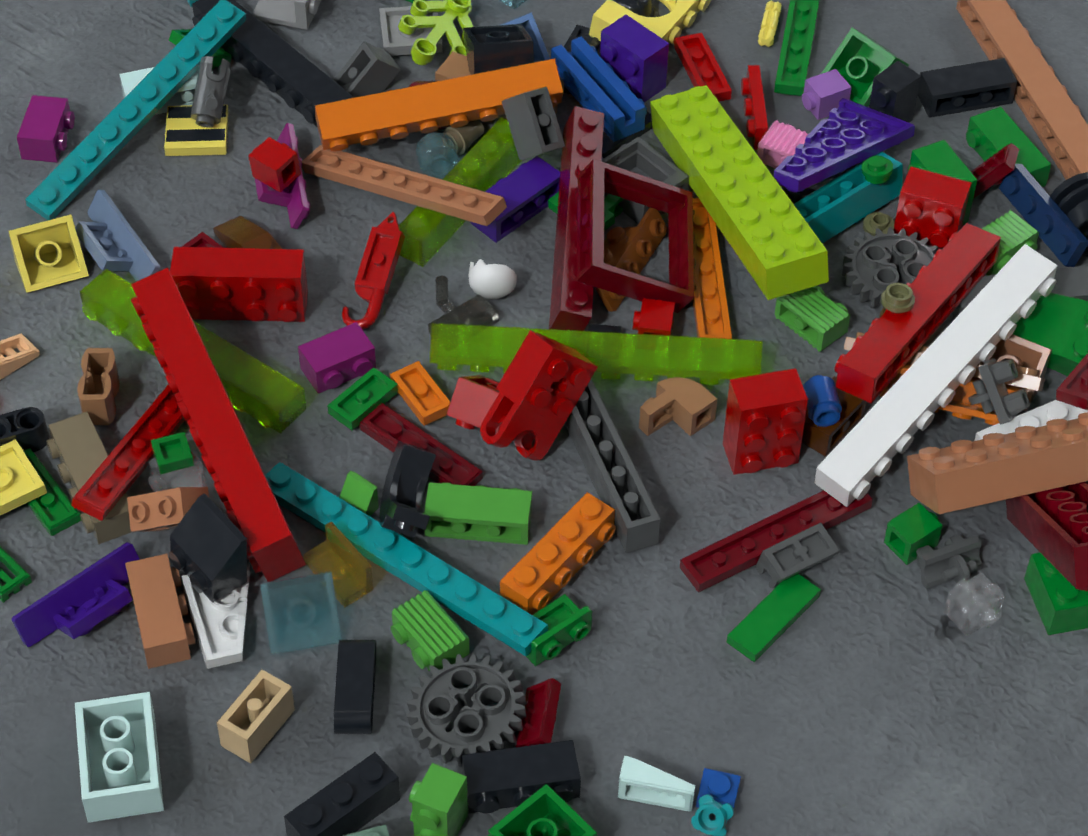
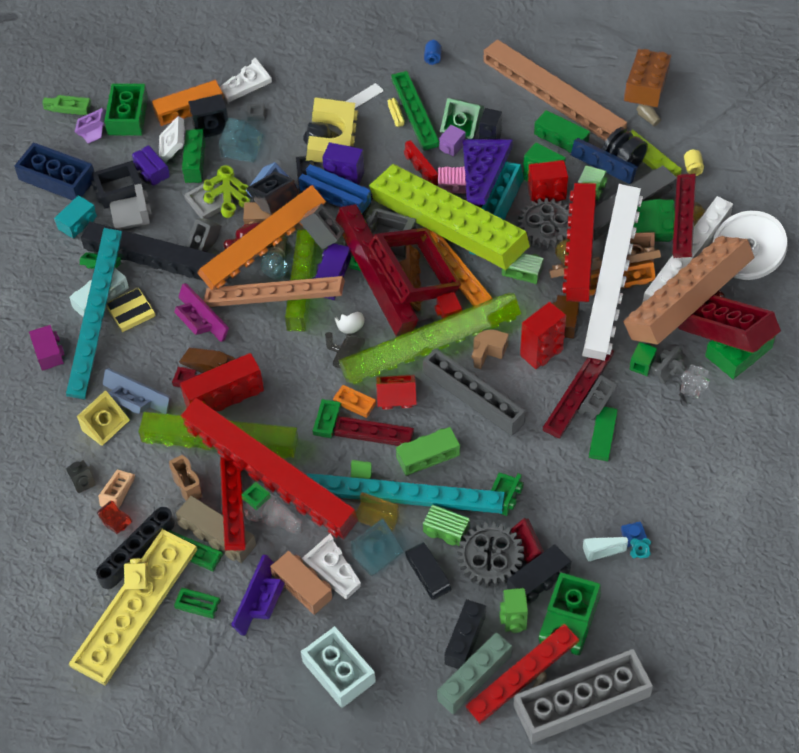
camera: 25 degrees left, 5 degrees up
(162, 508) = (274, 526): nougat brick -> none
(209, 550) = (313, 537): black slope -> none
(210, 92) = (129, 284): dark grey piece -> none
(256, 716) = (392, 611): tan brick -> none
(274, 164) = (196, 311): red brick -> none
(337, 357) = (299, 402): magenta brick -> none
(377, 269) = (288, 345): red plate -> none
(404, 490) = (383, 457): black arch -> none
(536, 395) = (425, 375): red brick -> none
(559, 554) = (483, 453): orange brick -> none
(702, 65) = (377, 152): red plate -> none
(823, 400) = (566, 308): blue brick -> none
(877, 169) = (512, 173): green plate -> none
(877, 220) = (521, 200): olive plate -> none
(898, 298) = (572, 240): olive plate -> none
(967, 87) = (521, 105): black brick -> none
(995, 168) = (566, 144): dark red plate -> none
(1004, 404) = (641, 260): dark grey hips -> none

